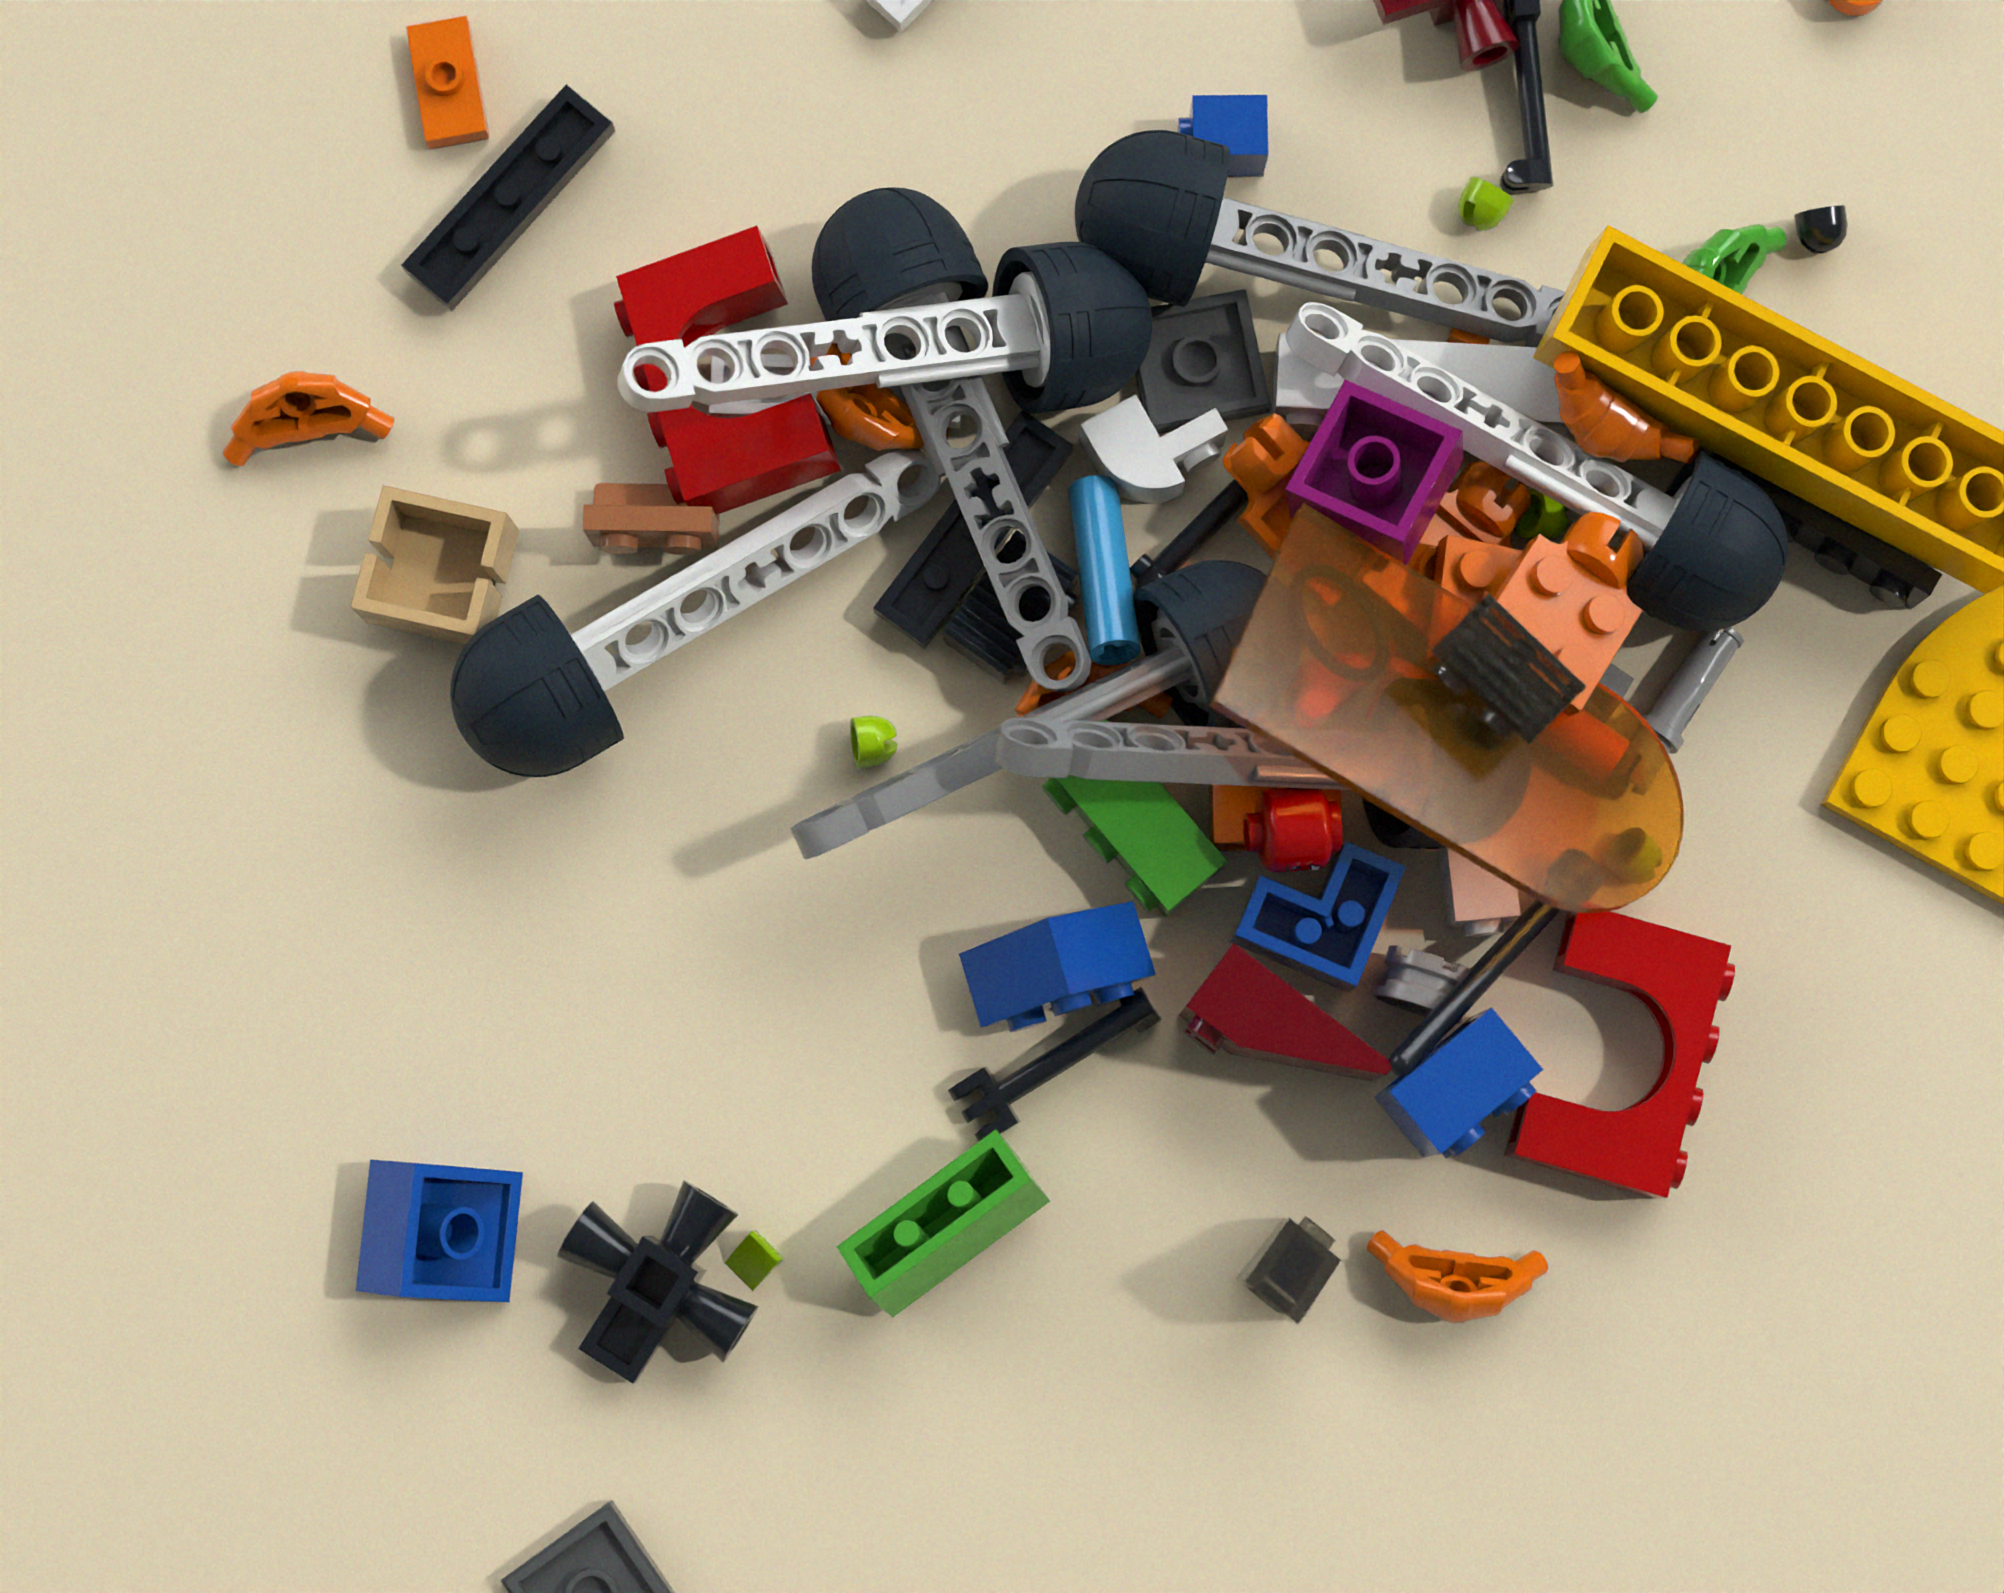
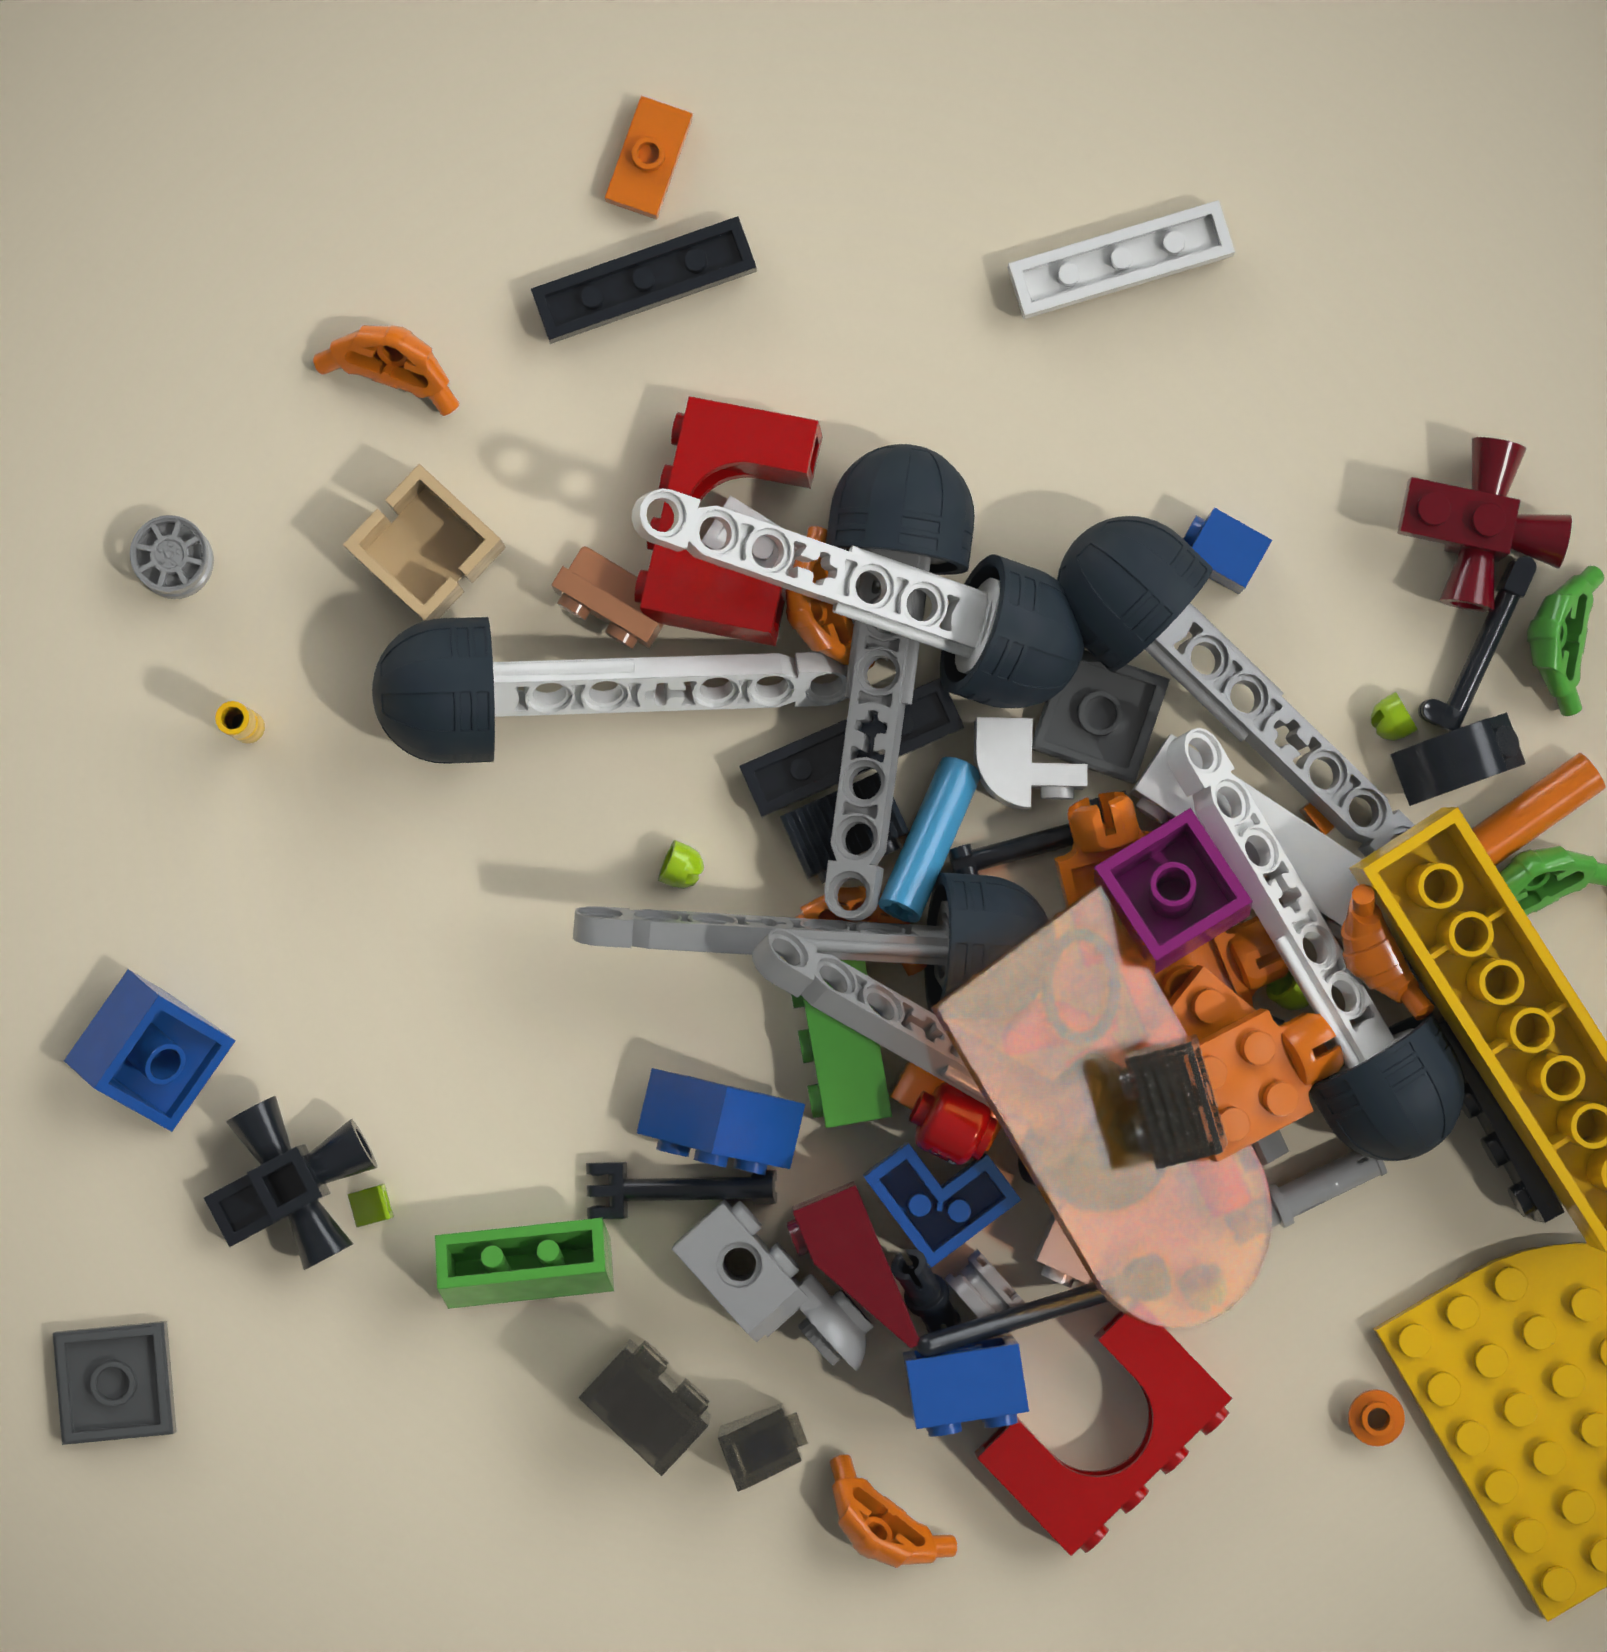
camera: 25 degrees right, 5 degrees up
(188, 726) = (171, 557): none -> light grey wheel
(345, 844) = (231, 713): none -> yellow piece
(1153, 1296) = (647, 1405): none -> clear smoke brick
(1208, 1105) = (770, 1291): none -> light grey brick
(1363, 1014) = (924, 1291): none -> black pin
(1568, 204) = (1458, 758): none -> black brick
(1682, 194) = (1539, 808): none -> orange piece
(1861, 893) = (1359, 1412): none -> orange plate

